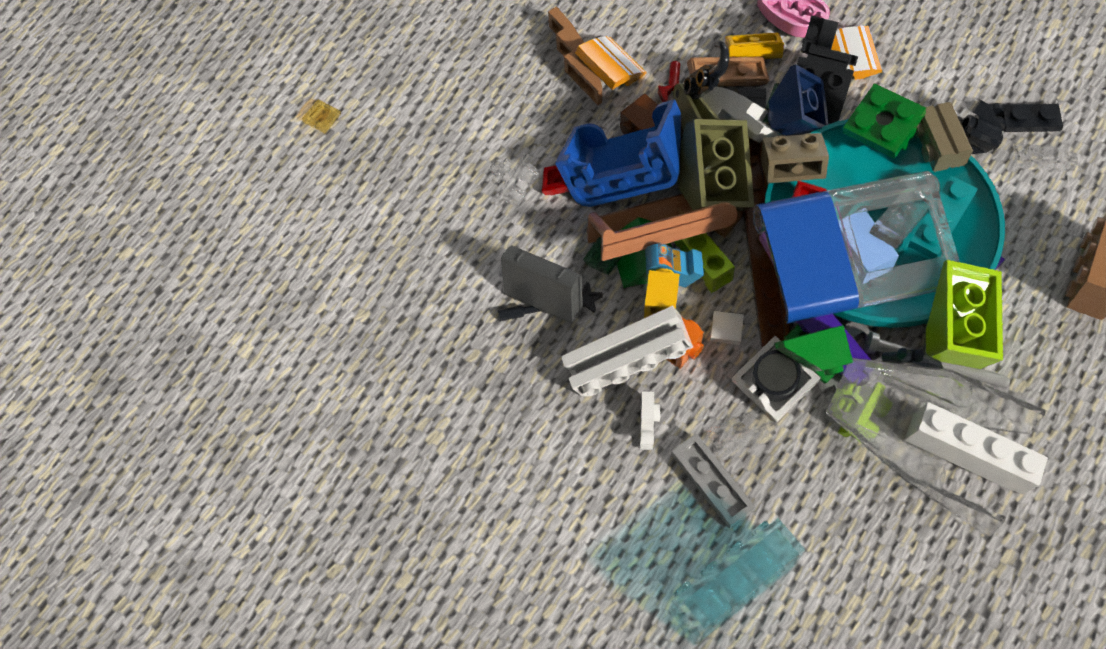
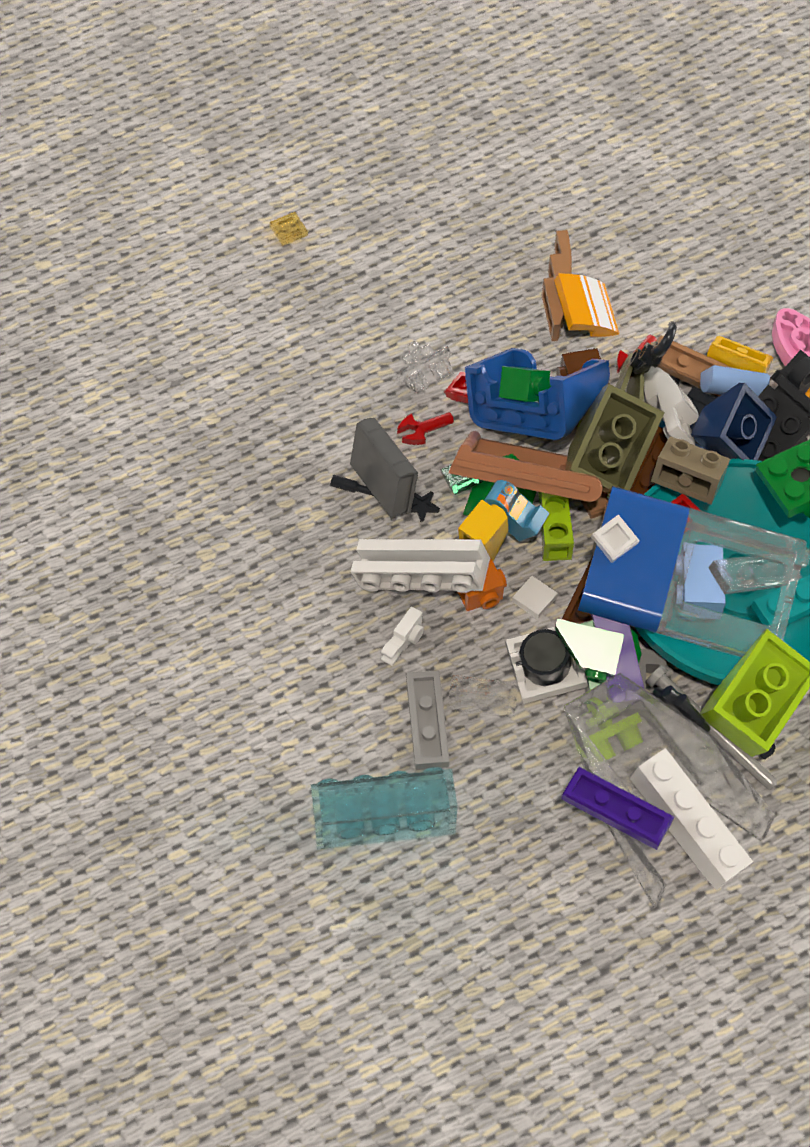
camera: 25 degrees right, 5 degrees down
(544, 231) = (422, 428): none -> red bar
(614, 152) = (523, 383): none -> green brick
(767, 68) = (721, 379): none -> light blue brick
(788, 248) = (615, 538): none -> white tile
(928, 475) = (617, 808): none -> dark purple tile

